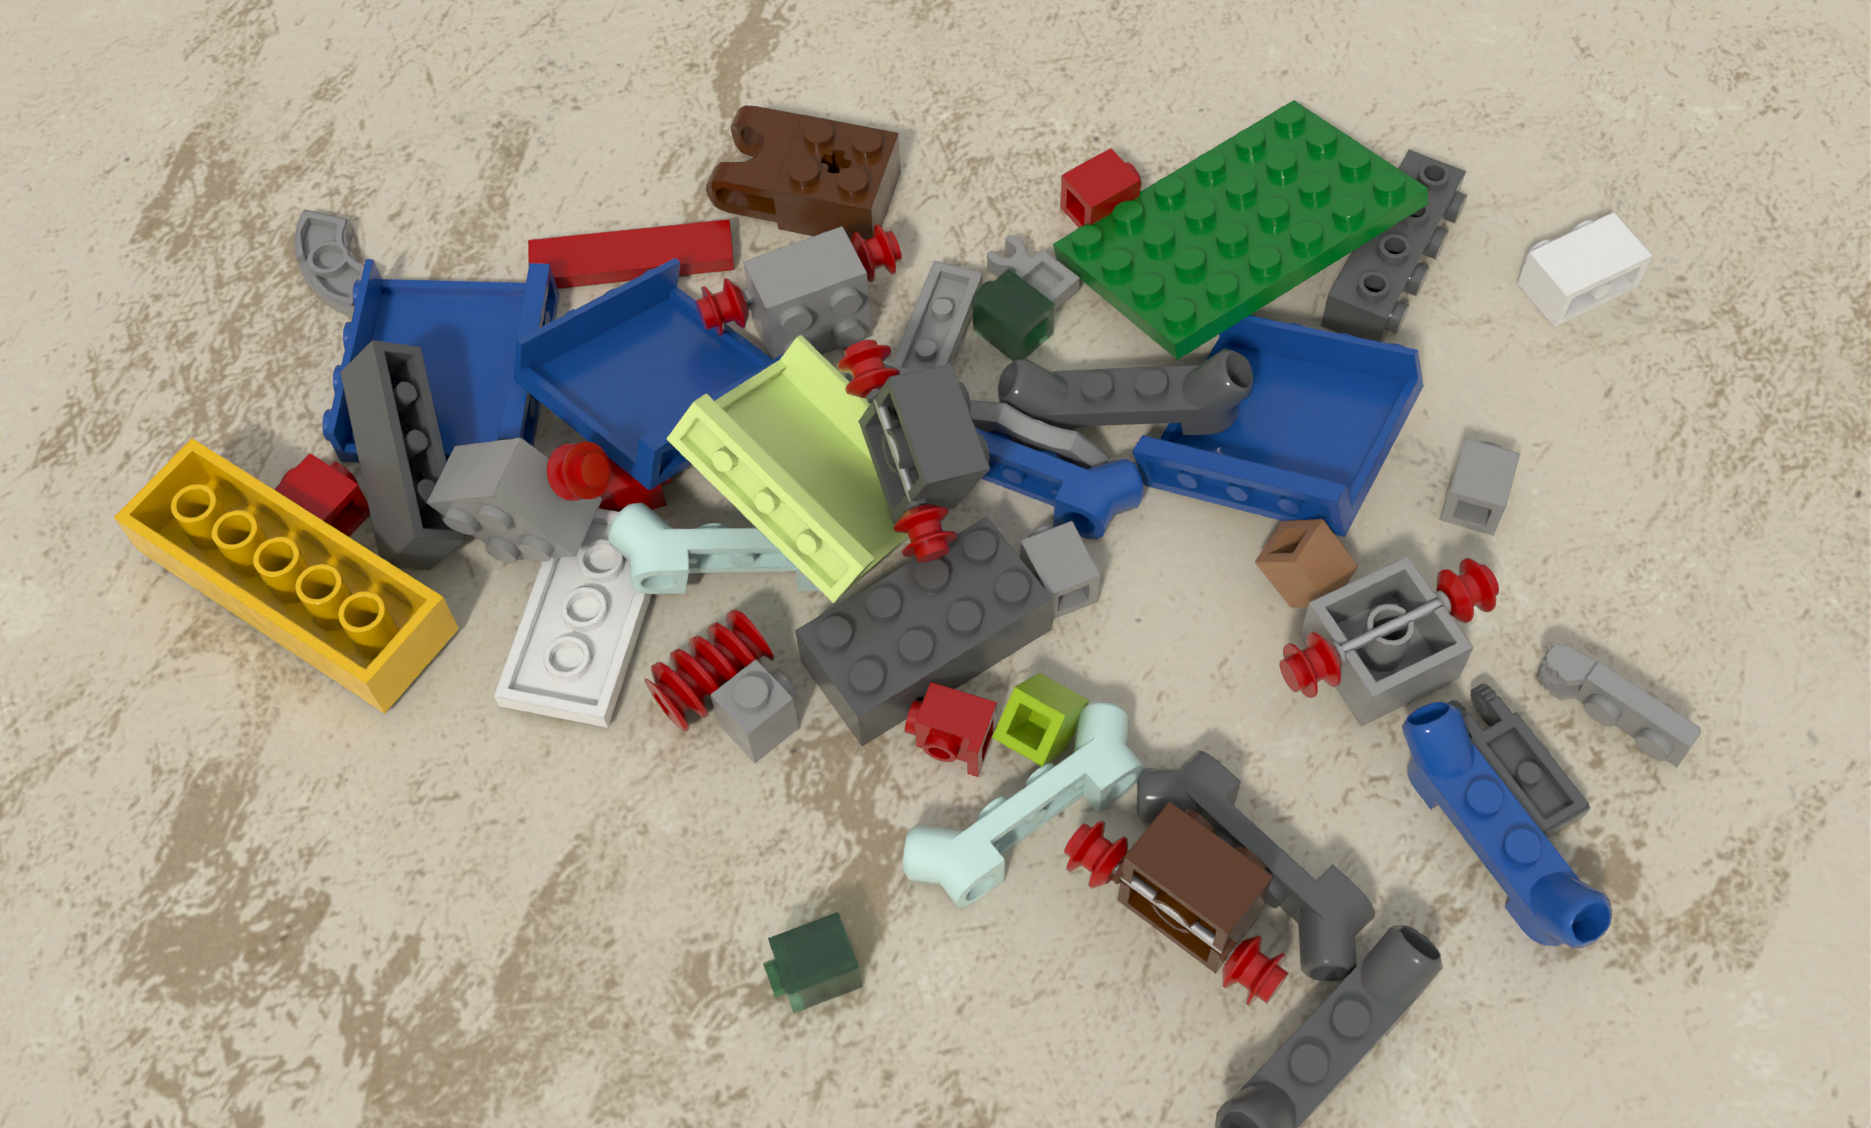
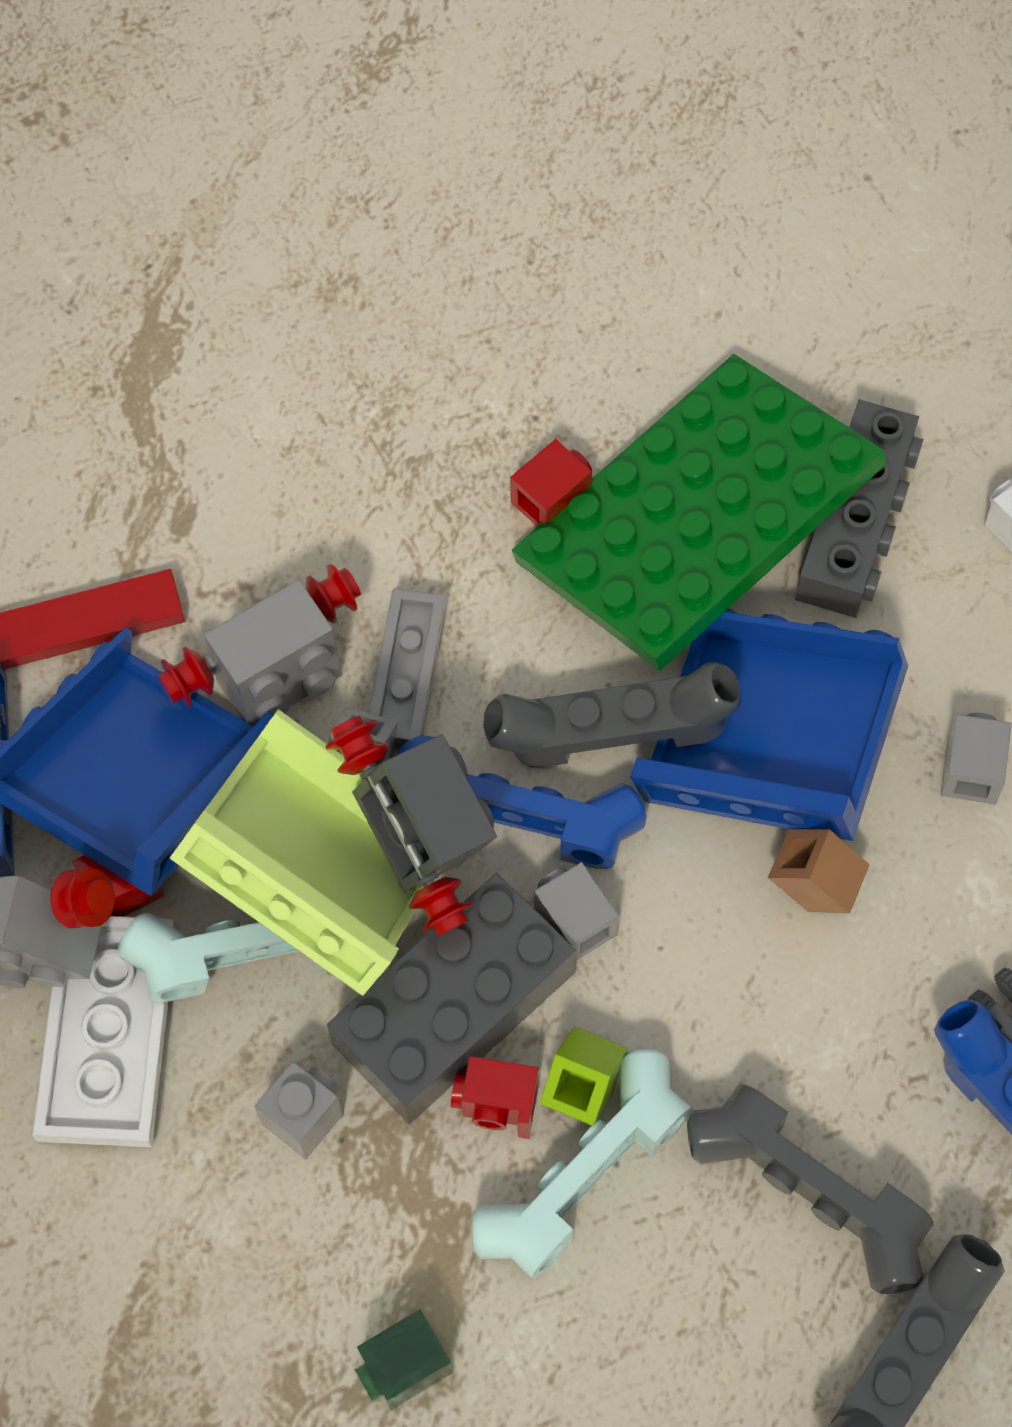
camera: 10 degrees left, 5 degrees up
(706, 668) = (243, 1072): red piece -> none
(807, 172) = (246, 508): reddish brown brick -> none
(1012, 315) = (483, 638): clear green brick -> none
(1036, 434) = (531, 771): light grey tile -> none
(1040, 271) = (501, 594): light grey plate -> none
(1189, 891) = (756, 1232): reddish brown brick -> none
(1389, 636) = (908, 937): light grey brick -> none

